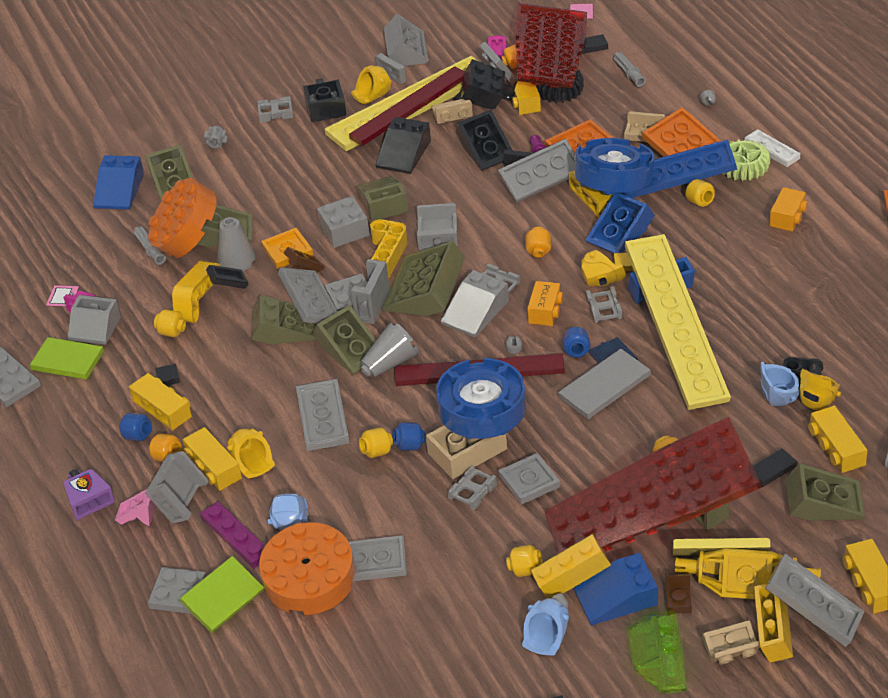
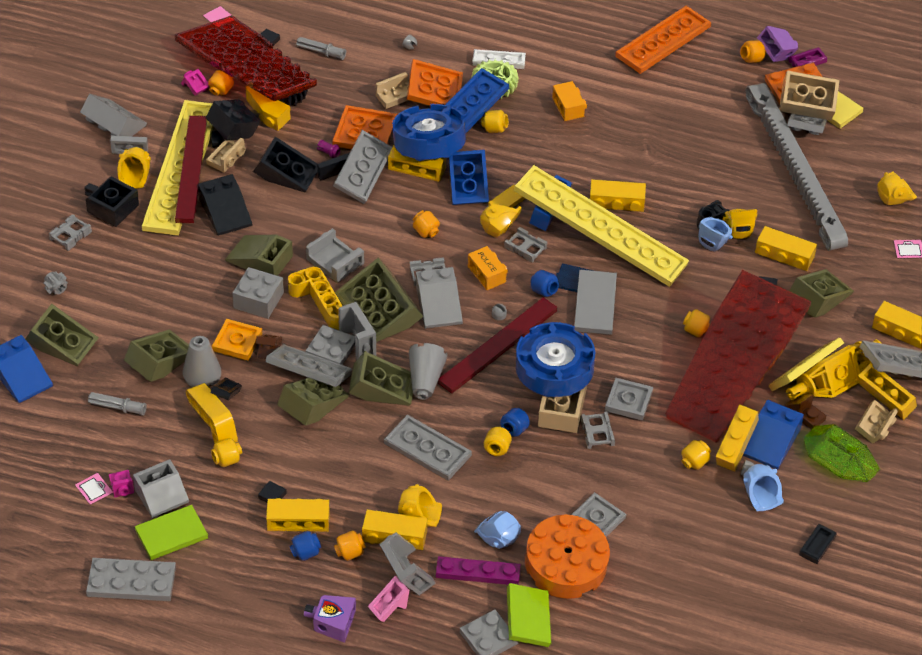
camera: 50 degrees left, 5 degrees up
(181, 216) = (141, 362): orange piece -> none
(496, 62) = (218, 93): light grey plate -> none
(733, 307) = (618, 195): none -> yellow brick

